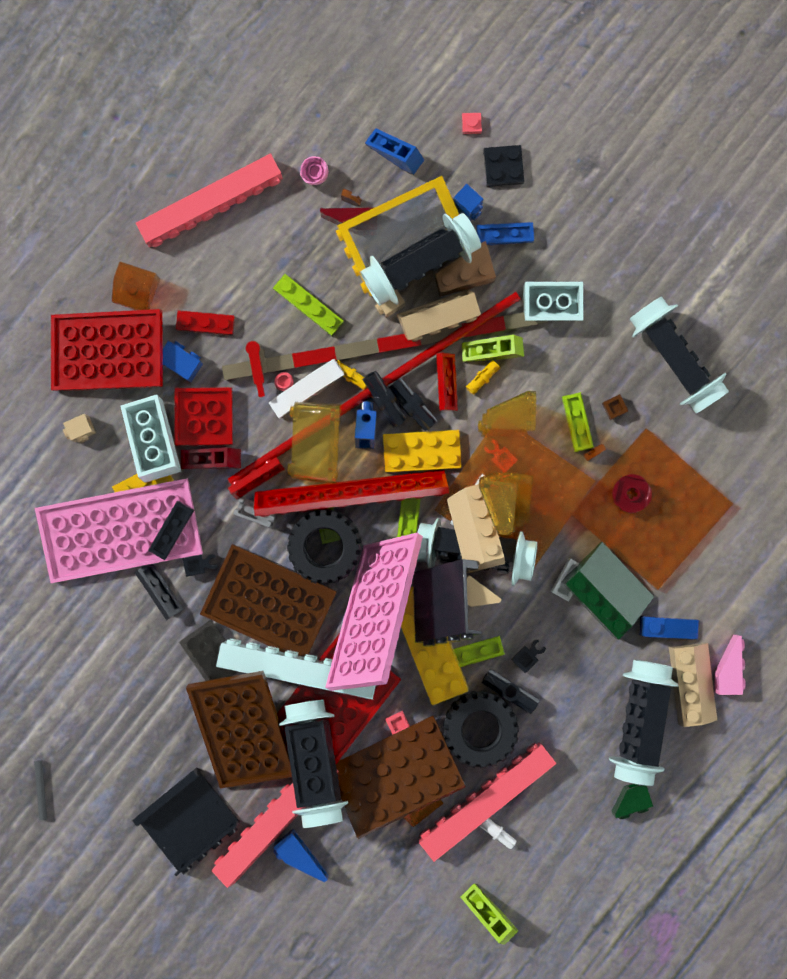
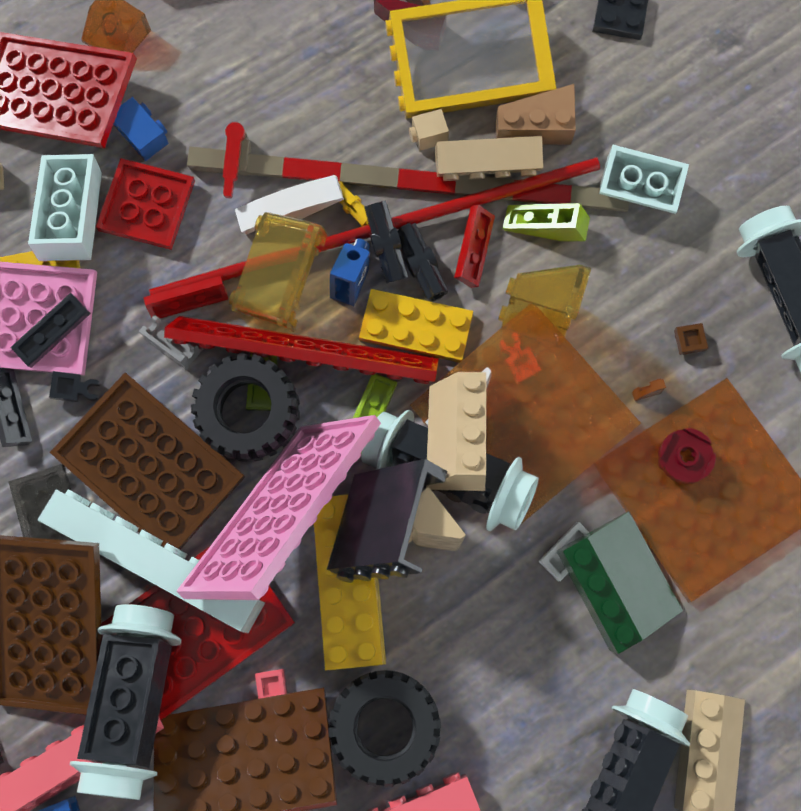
camera: 15 degrees right, 10 degrees down
(205, 322) = (188, 94): red plate -> none
(211, 458) = (138, 257): dark red slope -> none
(283, 381) = (262, 187): coral plate -> none
(308, 305) = (325, 108): lime plate -> none
(426, 254) = (537, 60): brick -> none
(468, 202) = (564, 35): blue brick -> none
(479, 651) = (416, 616): lime tile -> none
(483, 377) = (523, 254): yellow pin -> none
(506, 233) = (603, 88): blue plate -> none
(507, 499) = (512, 404): clear yellow windscreen -> none
(520, 698) = (455, 700): black piece -> none
(525, 658) = (480, 645): black plate -> none
(577, 422) = (635, 346): lime tile -> none
(668, 627) = (693, 660): blue slope -> none
(728, 674) = (767, 751): bright pink slope -> none

